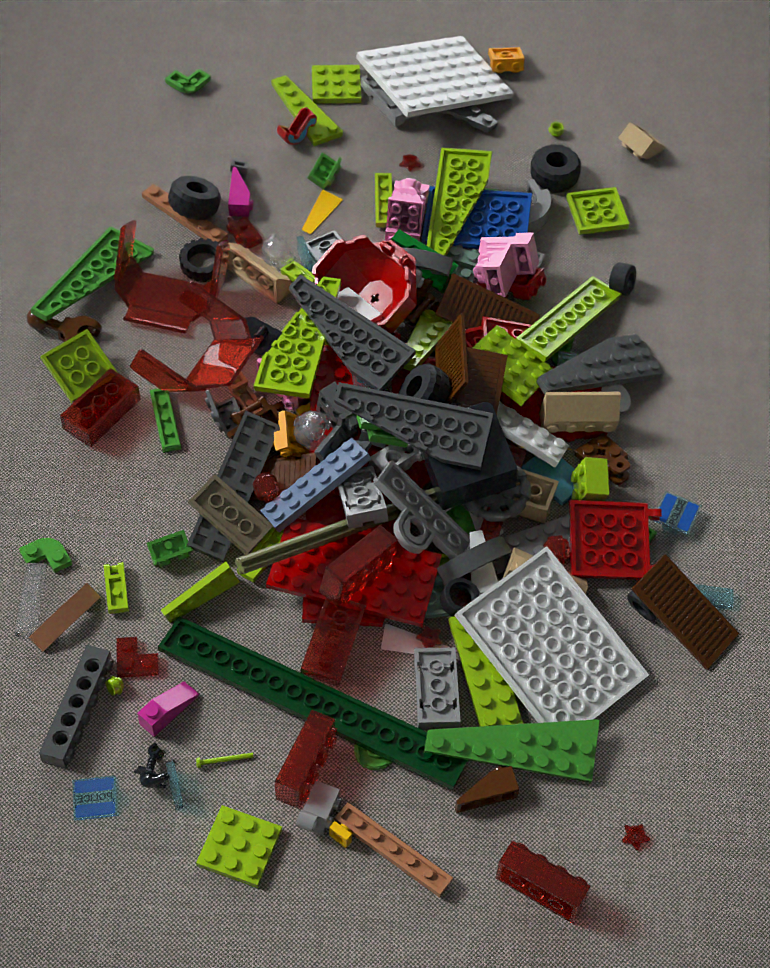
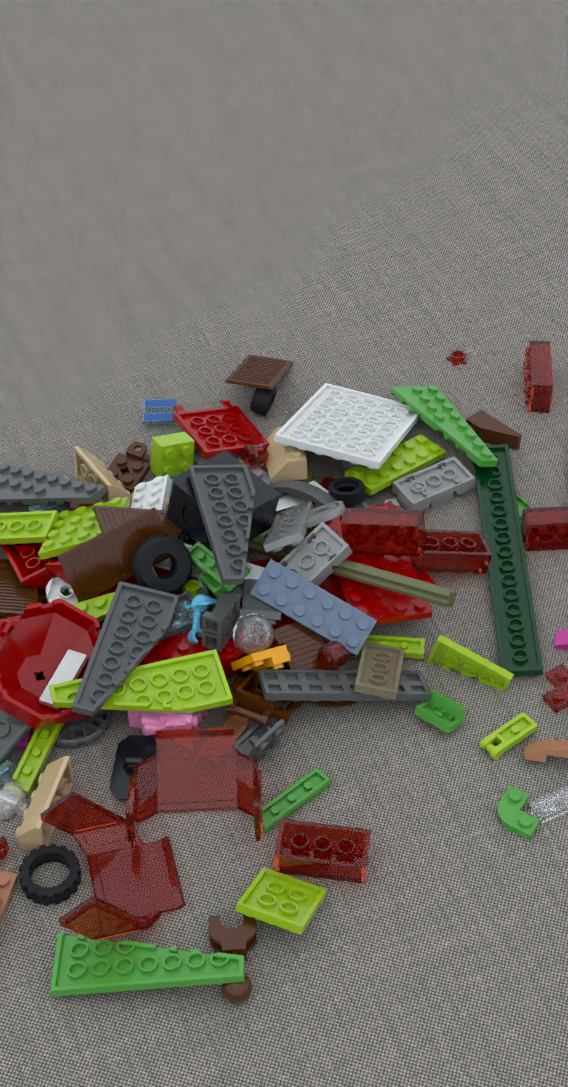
camera: 115 degrees left, 10 degrees down
(717, 596) = (222, 372): clear light blue tile -> none

